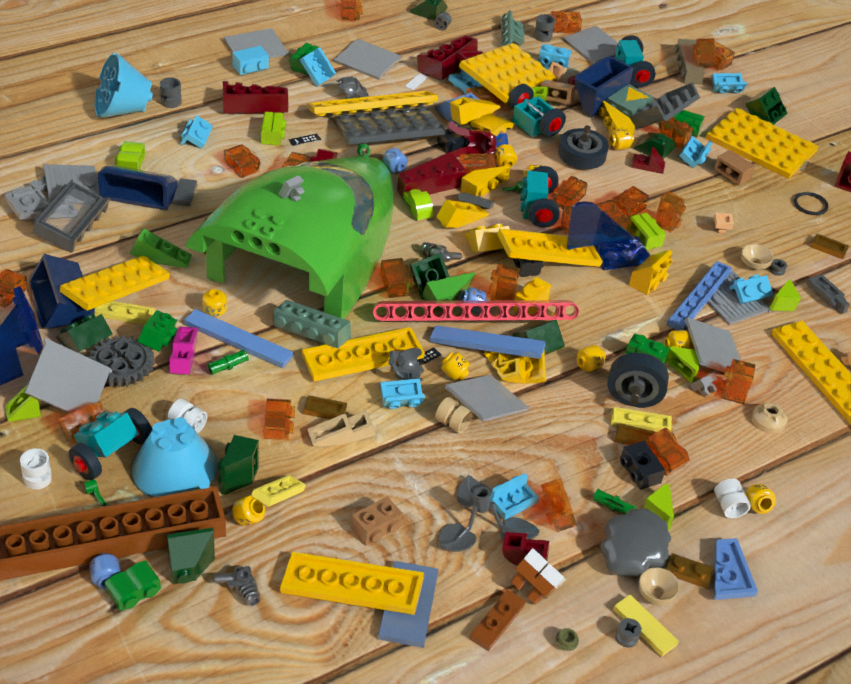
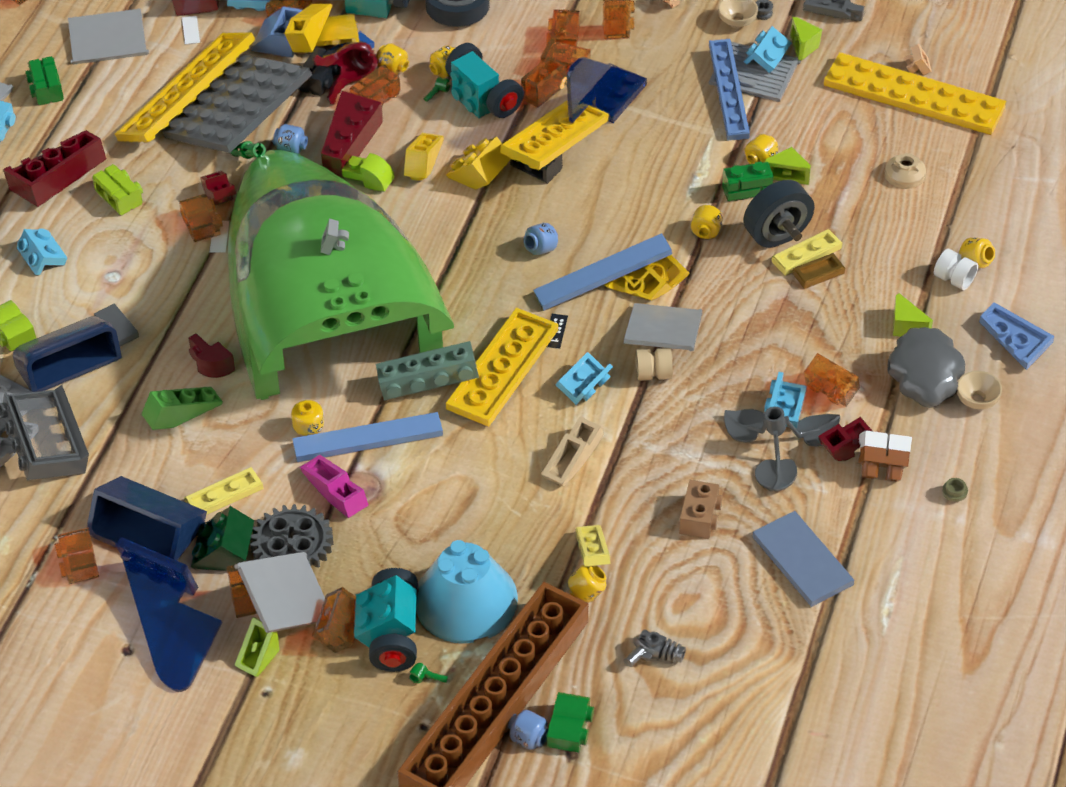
camera: 35 degrees left, 5 degrees up
(36, 468) = (354, 694): white wheel -> none
(114, 282) = (191, 467): yellow plate -> none
(158, 331) = (294, 484): green brick -> none
(190, 554) = (588, 660): dark green slope -> none
(195, 416) = (424, 543): white wheel -> none
(228, 362) = (390, 466): green pin -> none
(239, 464) = (529, 548): dark green slope -> none
(241, 160) = (133, 249): clear orange brick -> none
(277, 419) = (505, 484): clear orange brick -> none
(304, 139) = (159, 179): black sticker -> none
(318, 66) = (79, 81): medium azure bracket -> none
(324, 407) = (529, 444): pearl gold tile -> none
(352, 87) = (142, 83): dark grey helmet -> none
(352, 583) = (744, 576): yellow plate -> none
(396, 277) = (447, 267): clear orange brick -> none
(408, 364) = (560, 348): dark grey helmet -> none
(427, 270) = (472, 239): dark green slope -> none
(431, 249) = (451, 213): flat silver piece -> none
(448, 288) = (505, 248): bright green slope -> none
(455, 366) = (600, 316): yellow head -> none
(476, 200) = (418, 129): dark grey tile -> none
(484, 180) = (400, 103): yellow slope -> none
(484, 314) = (550, 248): coral beam -> none
(497, 620) = (885, 516): dark orange plate -> none
(504, 282) = (556, 201): clear orange brick -> none
(533, 290) = (589, 198): yellow brick -> none
(544, 331) = (635, 228): dark green slope -> none
(569, 192) = (499, 56): clear orange brick -> none
(602, 497) = (881, 343): green pin -> none
(626, 638) = (997, 453): dark grey wheel -> none
(642, 465) = (854, 292): black brick -> none
(647, 230) = (613, 50): lime brick -> none
(651, 272) = (666, 93): yellow slope -> none
(652, 630) = (998, 431): light yellow tile -> none
(668, 451) = (862, 265): clear orange brick -> none
(690, 570) = (986, 358): pearl gold plate -> none
(705, 383) = (824, 176): light grey tile -> none
(712, 345) = (799, 133): light grey piece -> none
(738, 381) = (854, 153): clear orange brick -> none

